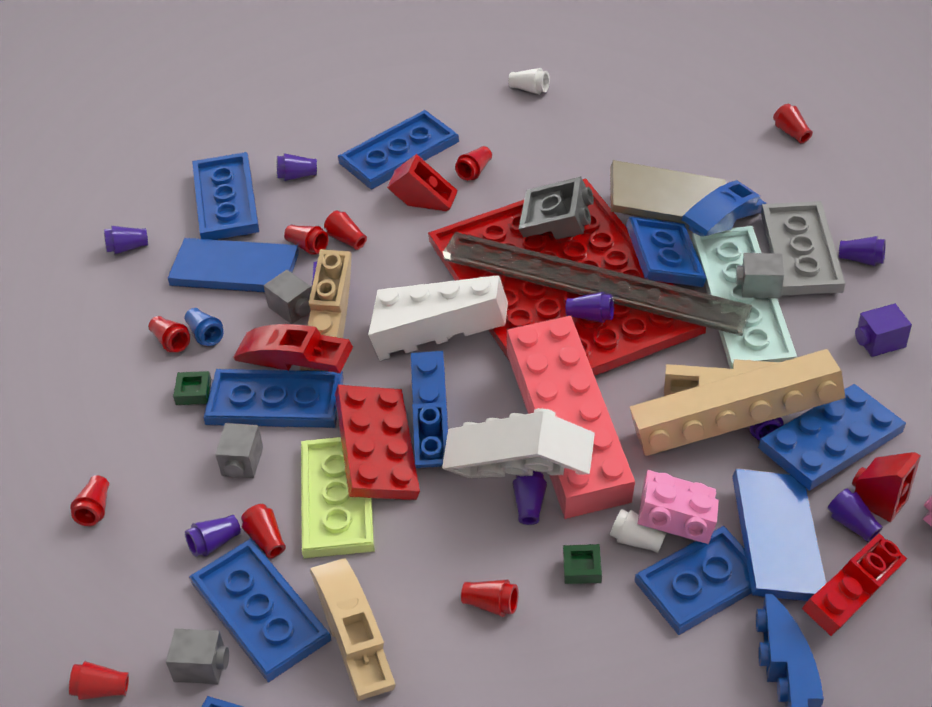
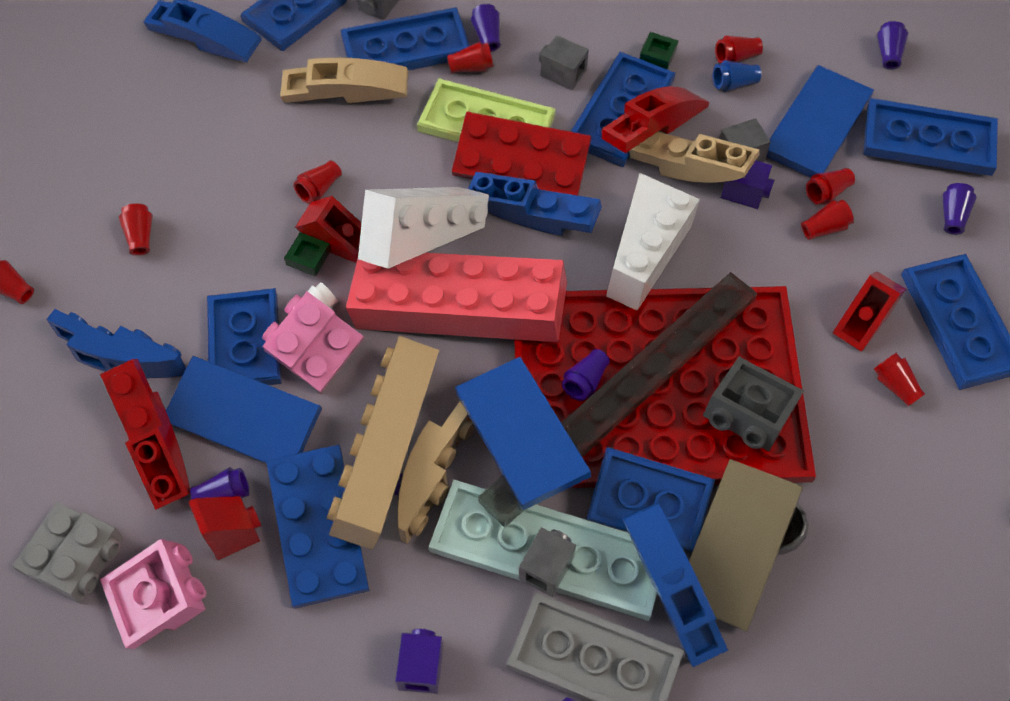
camera: 110 degrees right, 15 degrees up
(544, 552) = (334, 224): none -> red slope
(672, 318) = (522, 433): none -> blue tile

